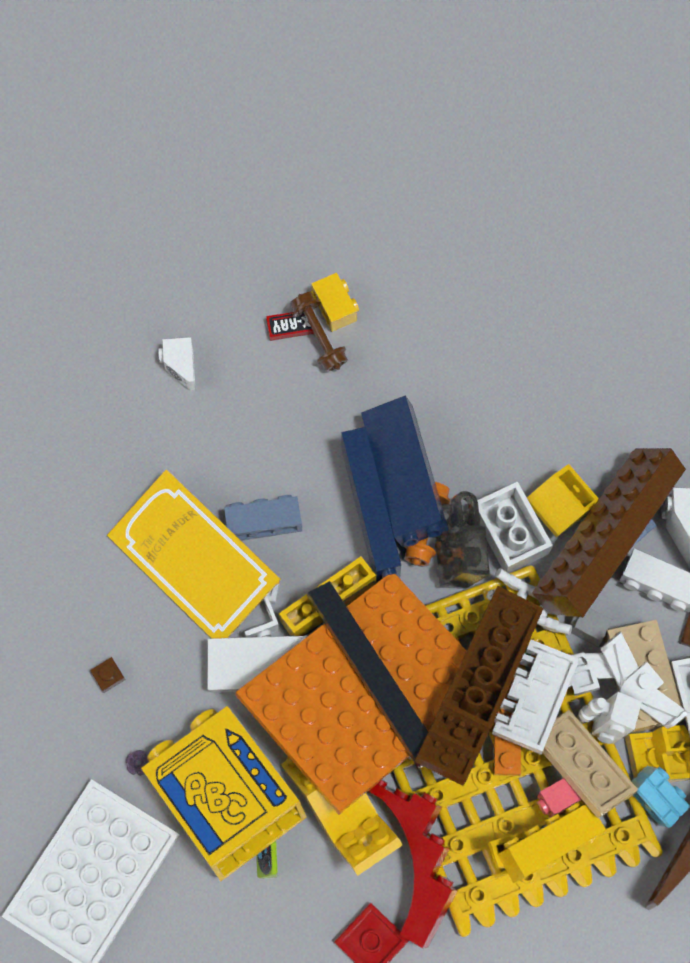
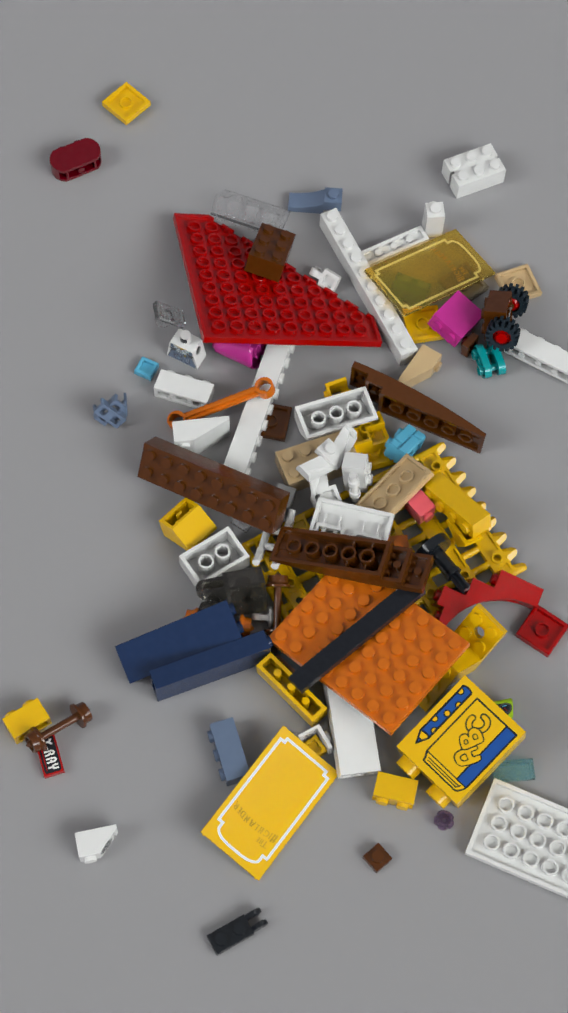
camera: 100 degrees left, 5 degrees down
(52, 501) = (235, 932): none -> black hinge
(183, 705) = (395, 791): none -> yellow brick
(186, 865) = (515, 770): none -> clear light blue tile
(256, 618) = (316, 745): none -> yellow tile
(430, 590) = (264, 616): none -> white piece
(467, 596) = (277, 582): none -> reddish brown piece
(486, 802) = (437, 546): none -> black piece

